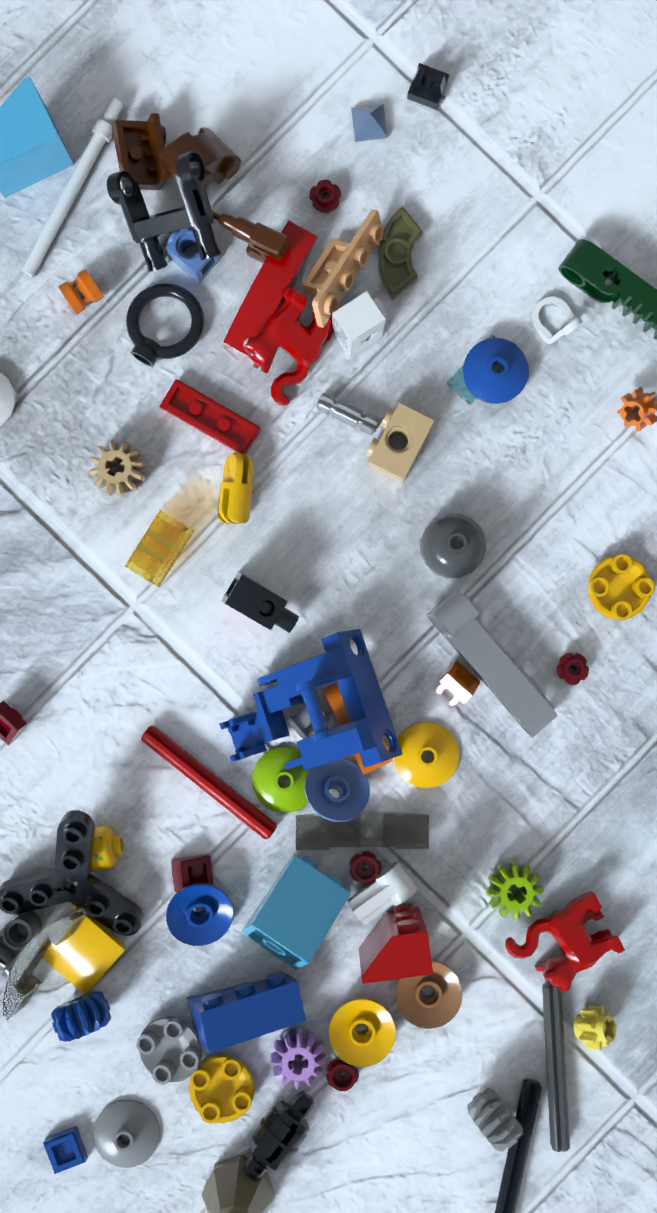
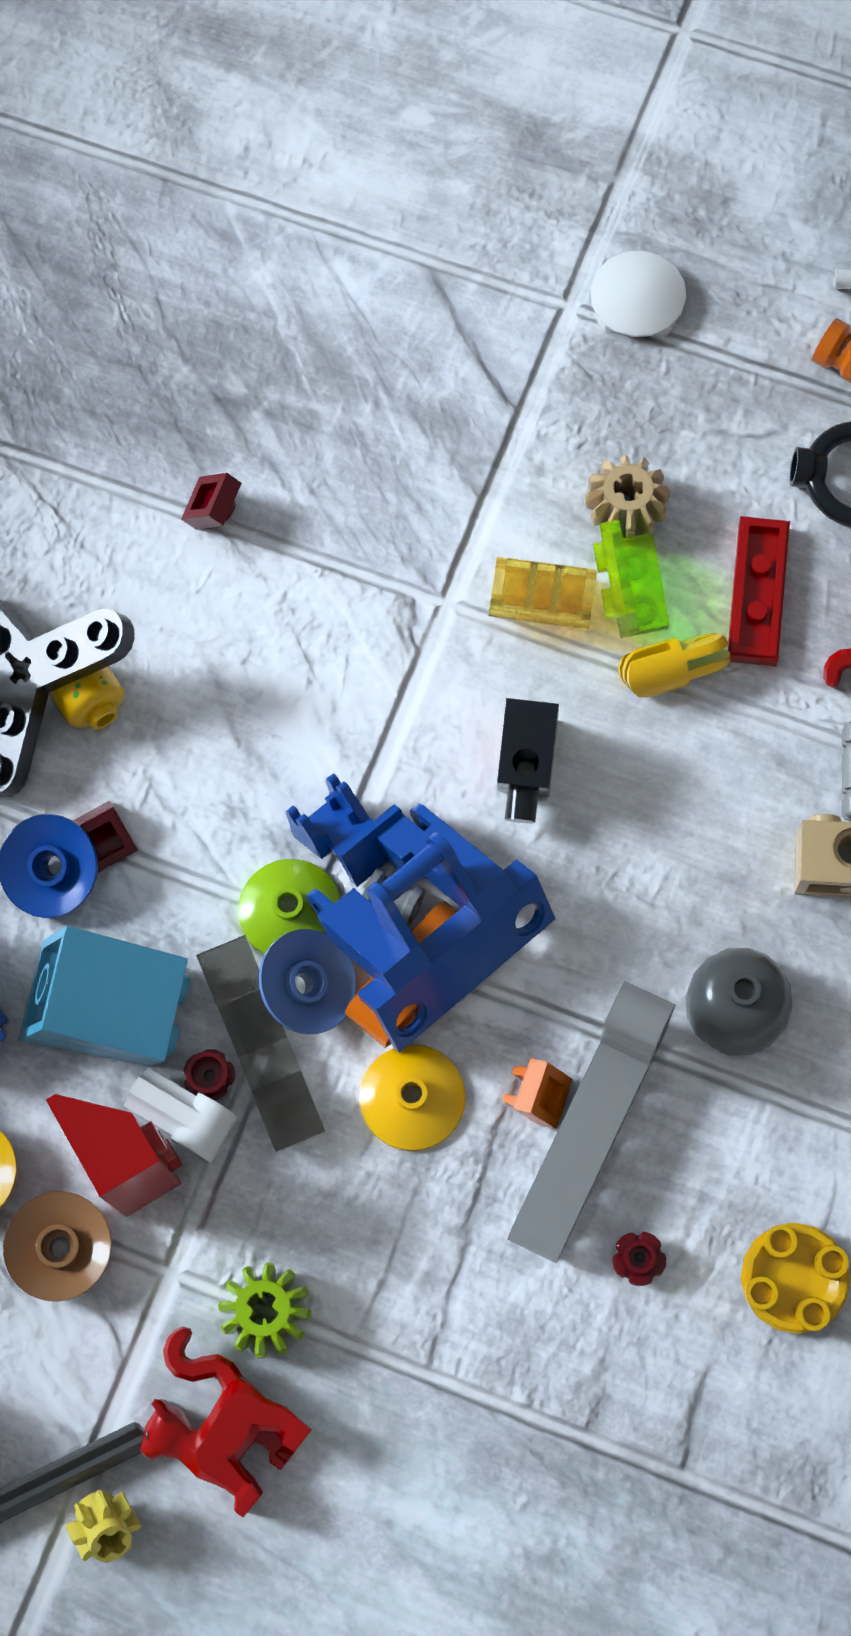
camera: 70 degrees right, 15 degrees down
(173, 489) = (635, 581): none -> clear neon green bracket
(209, 782) = (241, 805): red axle -> none

